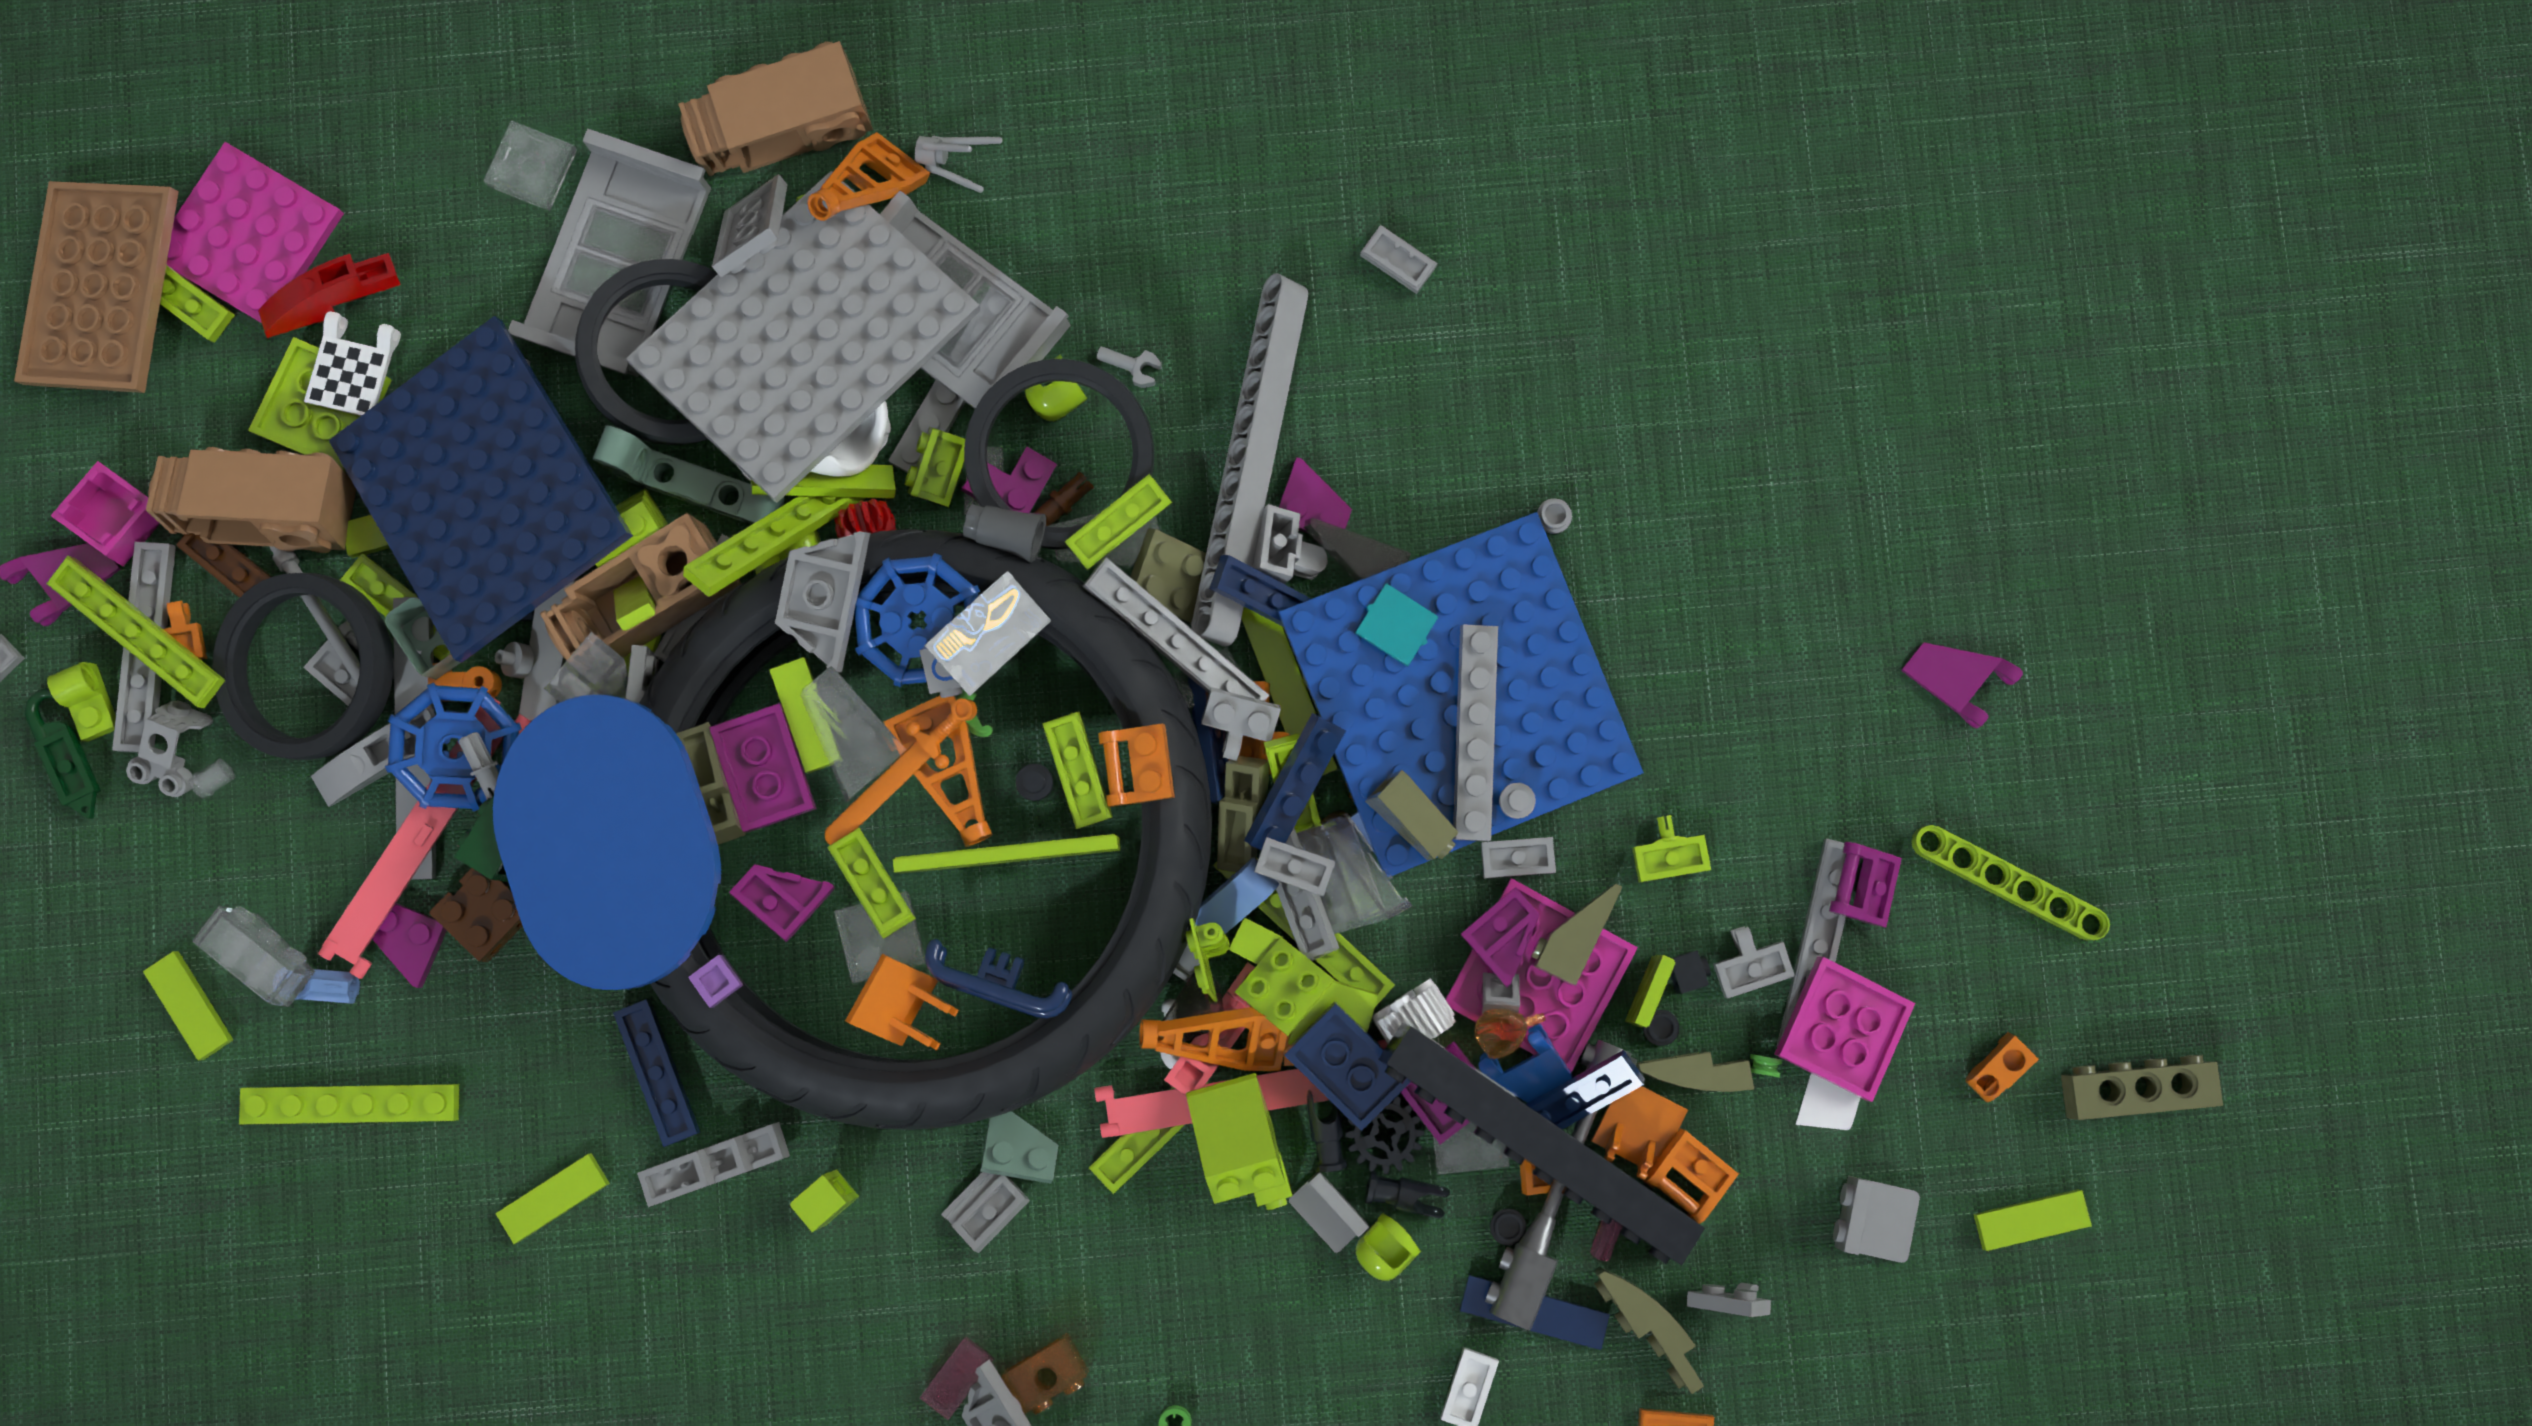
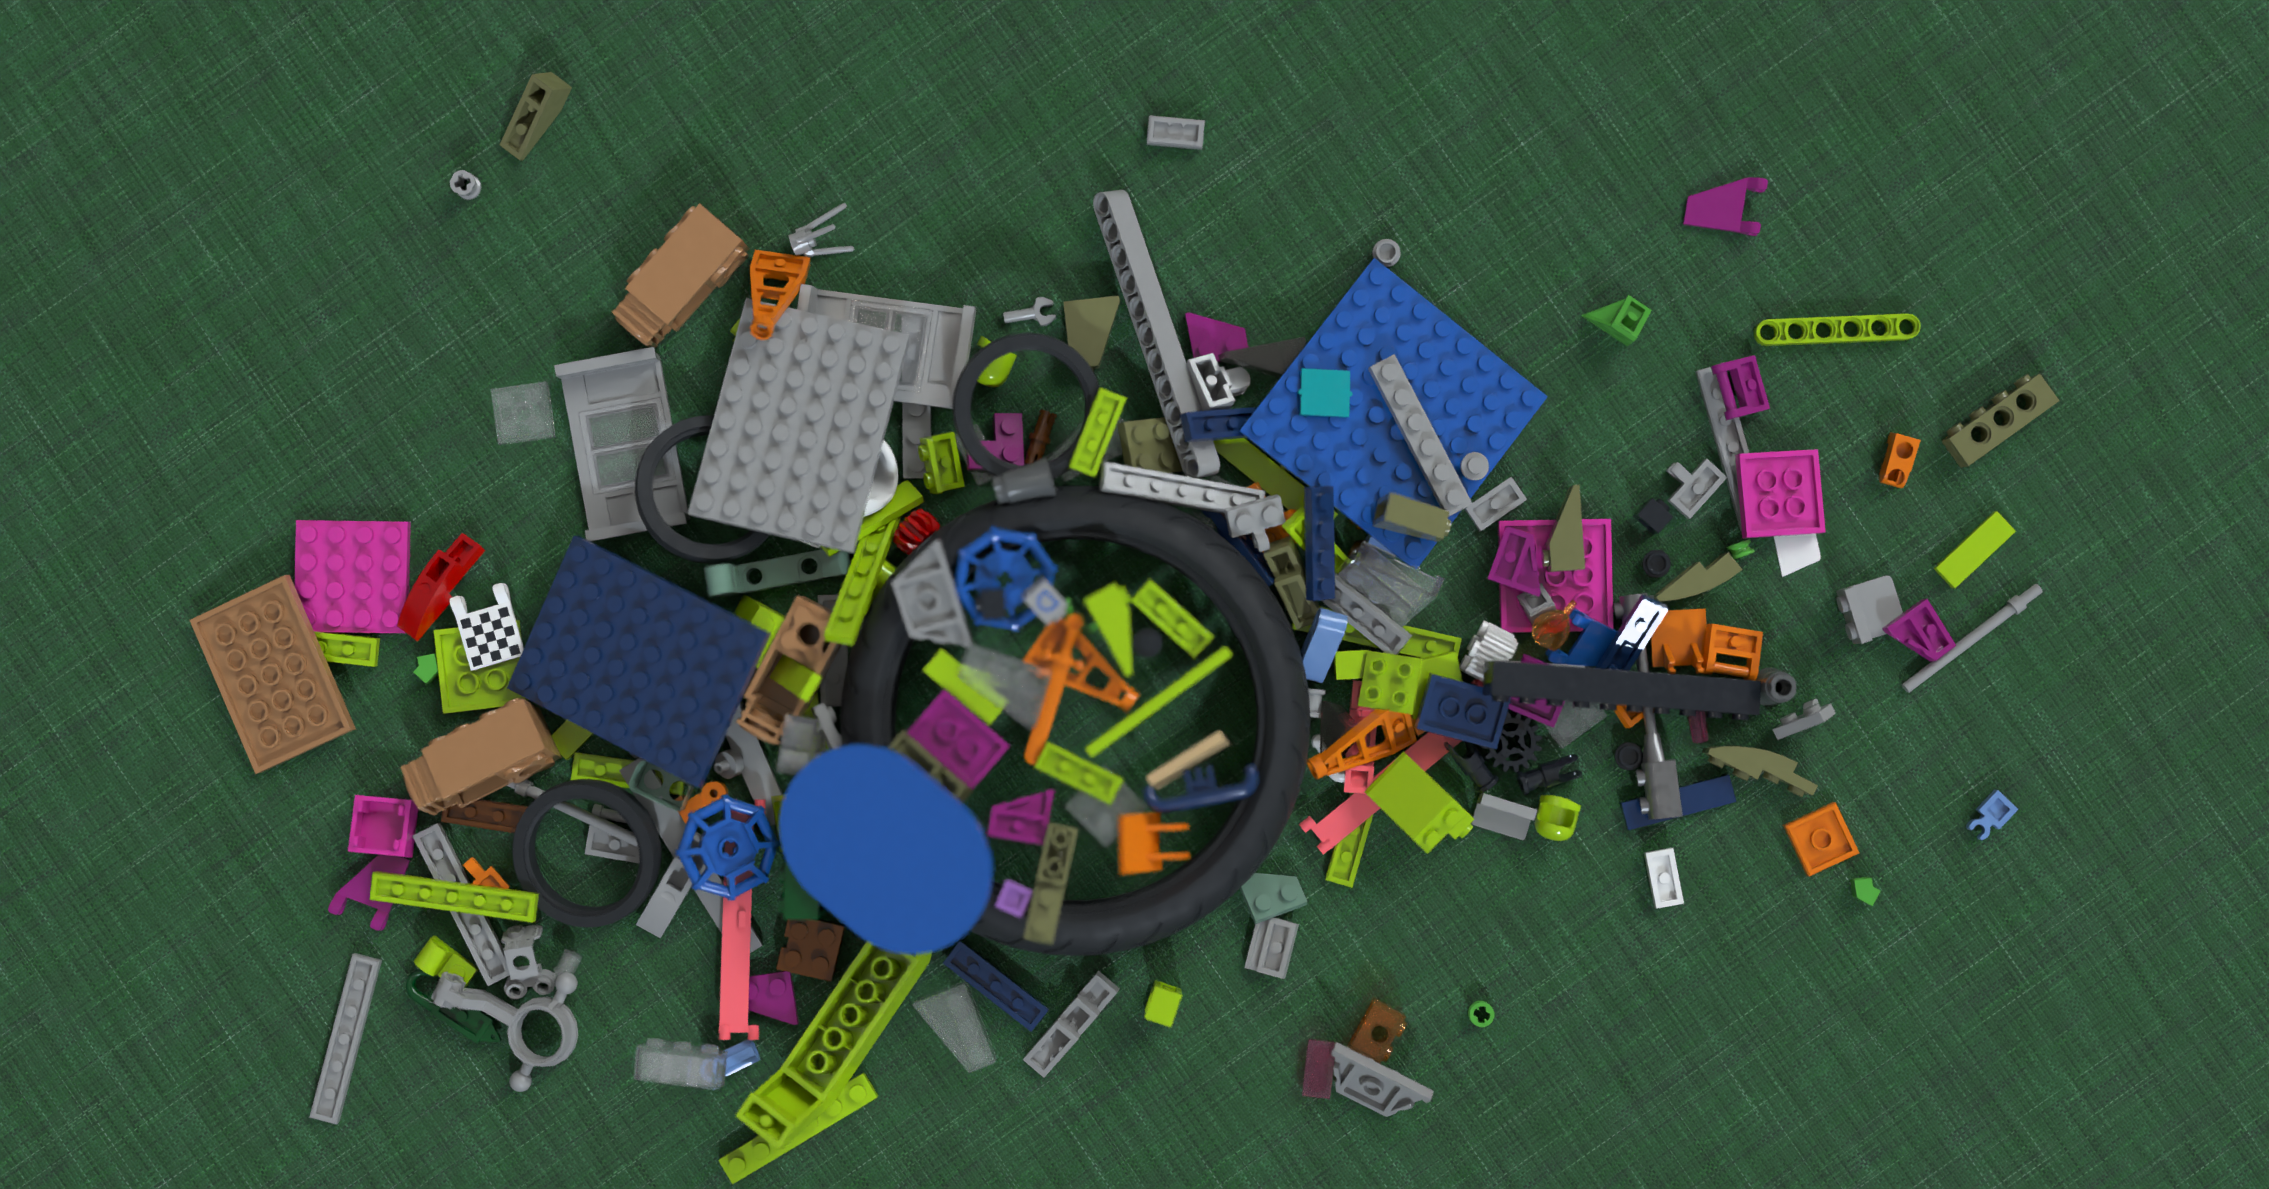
camera: 35 degrees left, 5 degrees up
(66, 735) = (451, 993): none -> light grey piece
(188, 1005) = (646, 1126): lime tile -> none
(261, 374) = (427, 668): none -> bright green piece
(429, 1034) = (833, 1044): none -> lime slope
(480, 762) = (759, 849): light grey axle -> none
(552, 1198) = (975, 1110): lime tile -> none
(588, 1093) = (958, 1024): none -> clear wedge
(750, 227) = (716, 370): light grey plate -> none
(765, 988) = (1050, 884): none -> olive slope
(884, 636) = (991, 603): none -> black plate
(987, 633) = (1061, 561): sticker -> none
(1000, 938) = (1188, 760): none -> tan tile
(1009, 732) = (1113, 618): none -> lime slope
(1148, 764) = (1218, 586): orange plate -> none
(1184, 414) = (1090, 326): none -> olive slope
(1206, 942) = (1320, 684): lime hinge -> none
(1294, 866) = (1352, 598): light grey plate -> none
(1650, 991) = (1636, 543): lime tile -> none
(1671, 854) = (1597, 442): lime plate -> none
(1715, 1230) = (1768, 679): none -> dark grey plant
(1773, 734) = (1621, 319): none -> bright green slope
(1920, 1278) = (1921, 631): none -> magenta wing
(2044, 1310) = (2014, 605): none -> light grey bar

